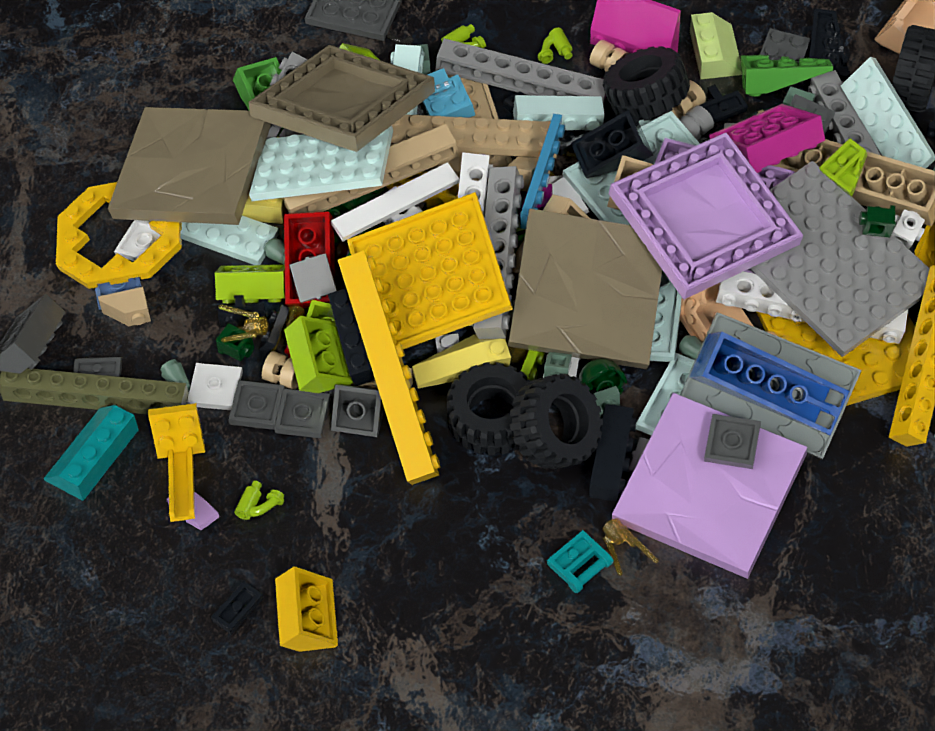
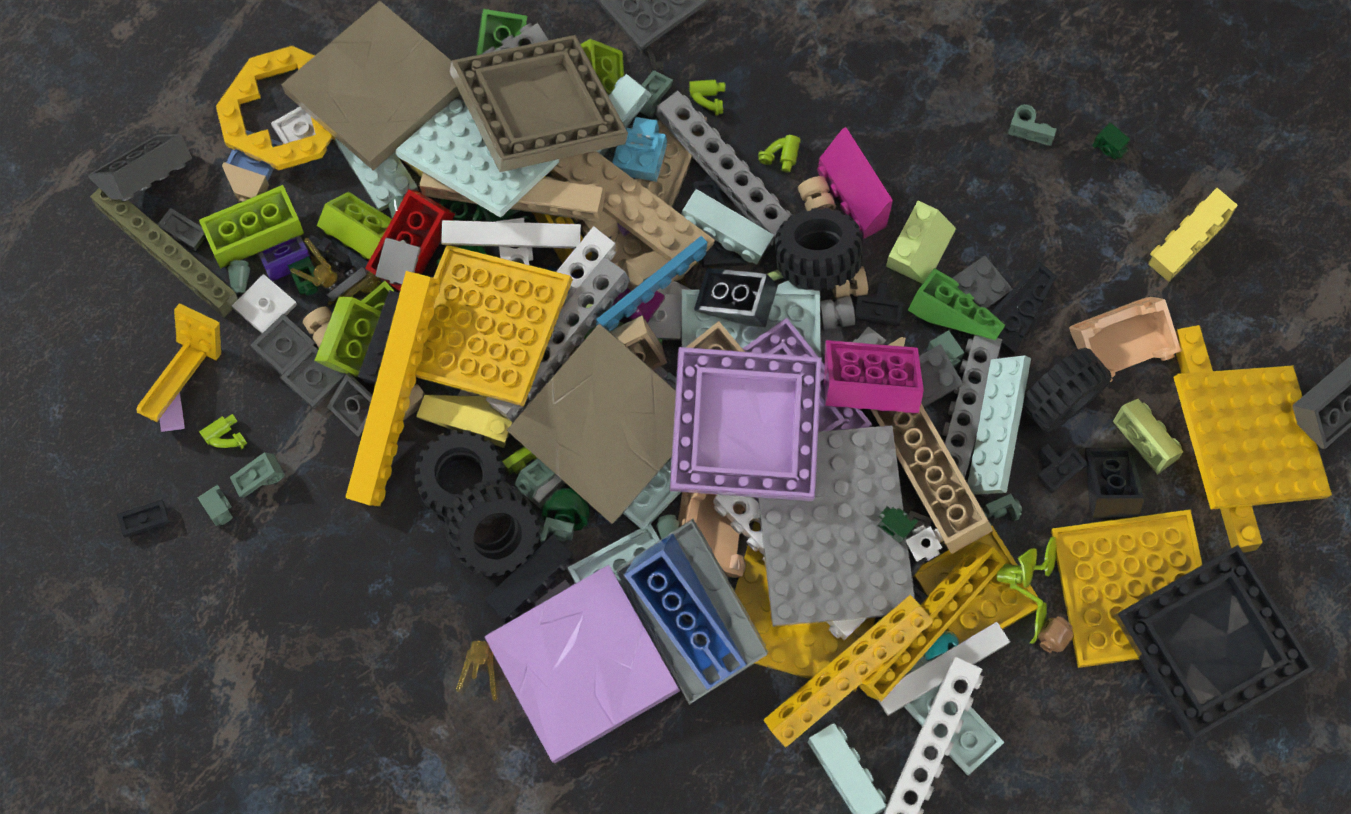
camera: 30 degrees right, 15 degrees up
(93, 451) = (128, 303): teal slope -> none
(160, 330) = (251, 226): none -> lime slope
(201, 343) = (280, 256): none -> dark purple slope
(295, 556) = (215, 506): none -> sand green brick
(306, 610) = (191, 557): yellow slope -> none
(312, 512) = (259, 472): none -> sand green plate
(576, 554) = (430, 651): teal plate -> none
(732, 441) = (619, 643): dark grey plate -> none
(845, 166) = (914, 450): lime wing -> none

